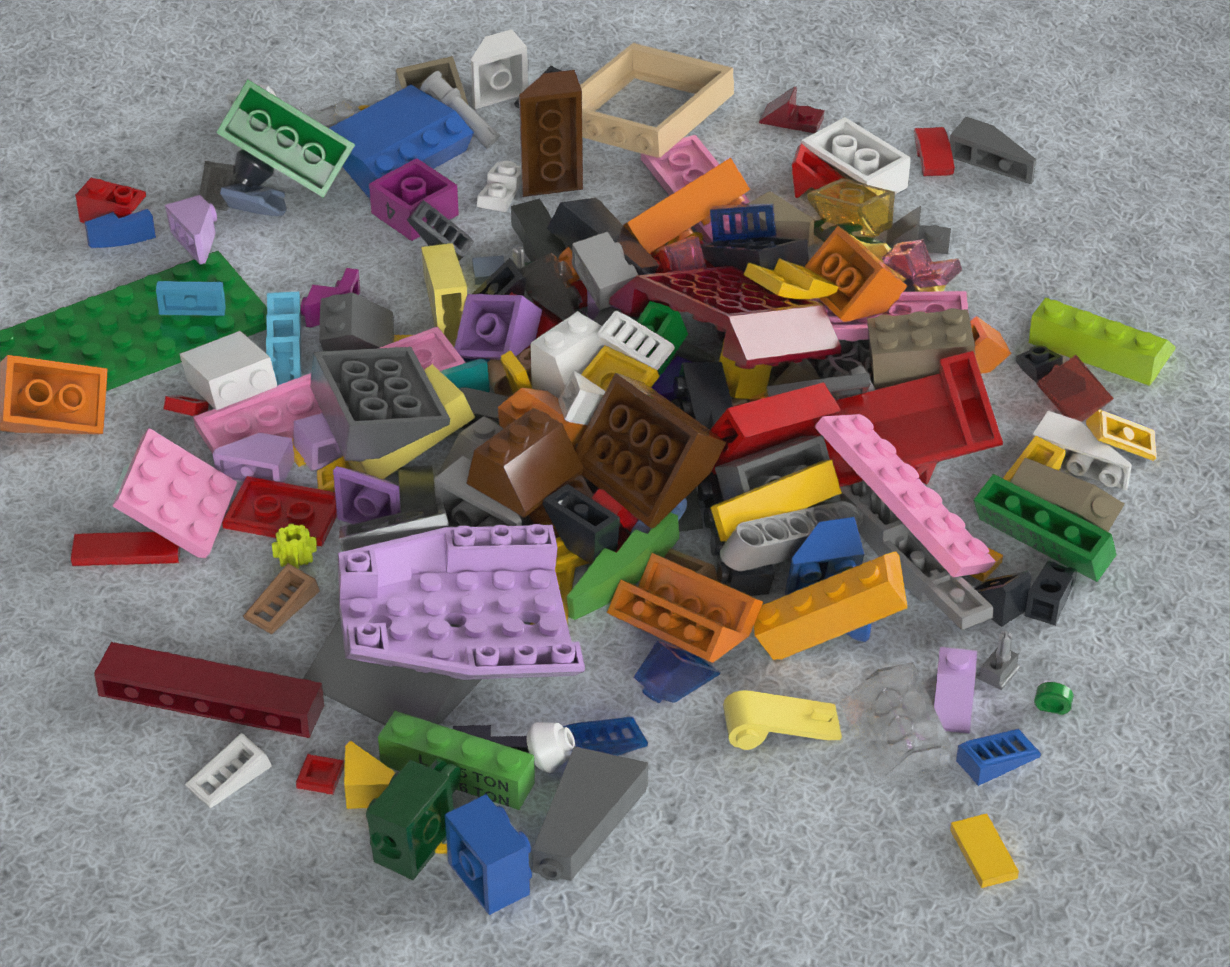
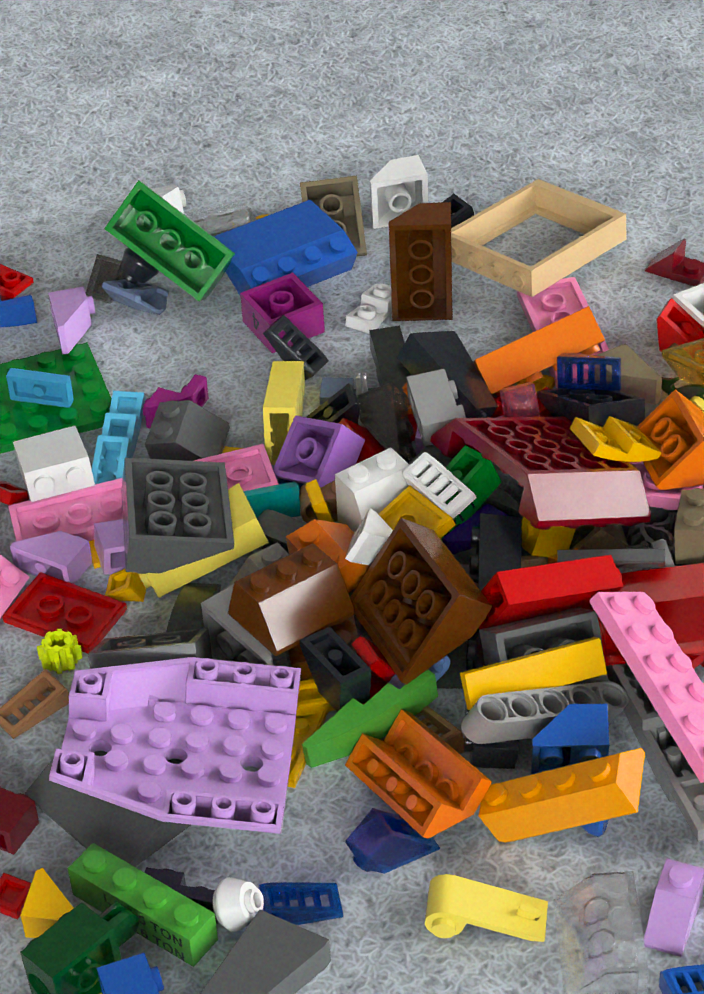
camera: 15 degrees right, 0 degrees up
(363, 496) = (136, 608): medium lavender slope -> none
(443, 92) = (346, 220): light grey pin -> none

